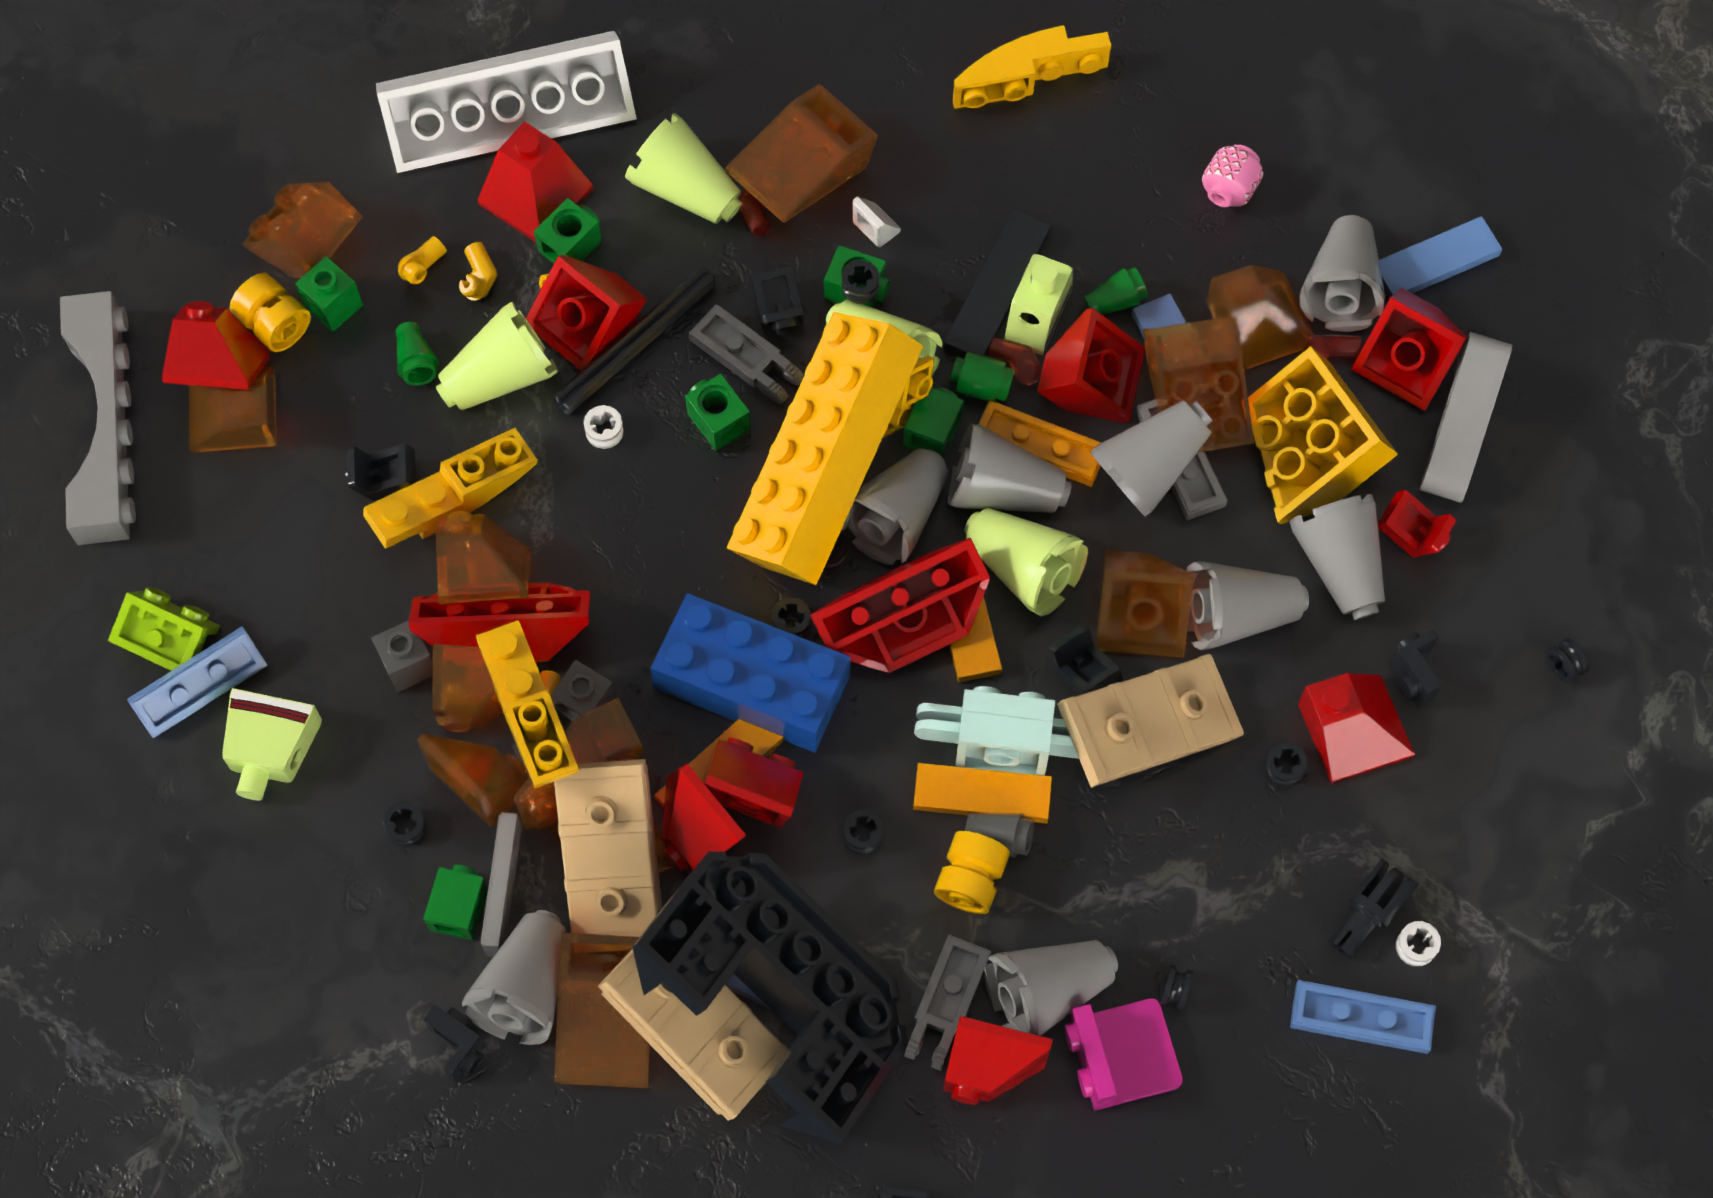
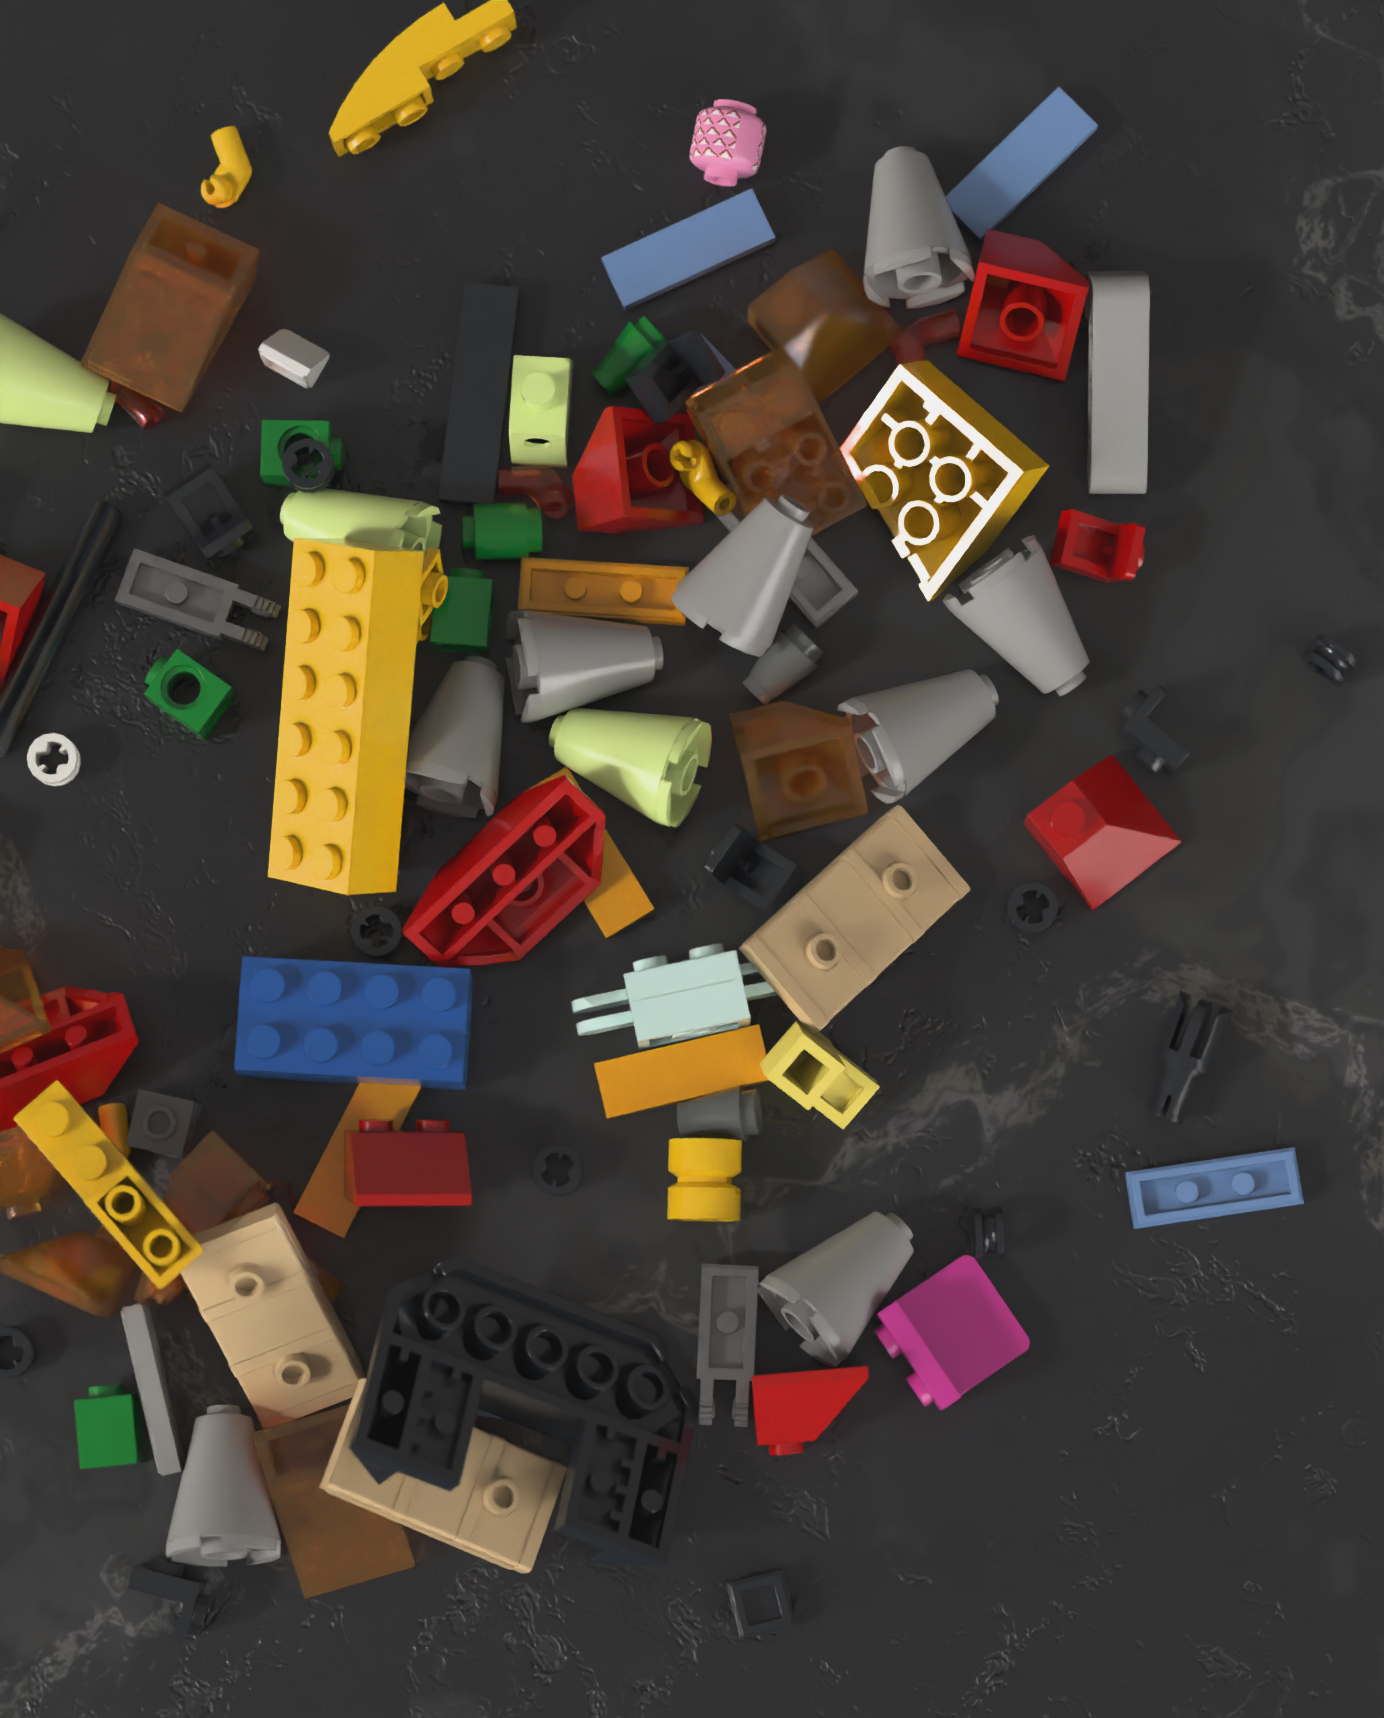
camera: 15 degrees left, 15 degrees up
(694, 821) = (357, 1245): red slope -> none
(877, 93) = (232, 173): none -> yellow arm
(1085, 823) = (818, 1075): none -> light yellow brick
(1138, 383) = (700, 476): none -> yellow arm
(1144, 305) = (673, 374): none -> black bracket
(1156, 530) = (783, 664): none -> dark grey cone
(1180, 240) = (688, 249): none -> medium blue tile
(1406, 953) = (1266, 1088): white bush -> none

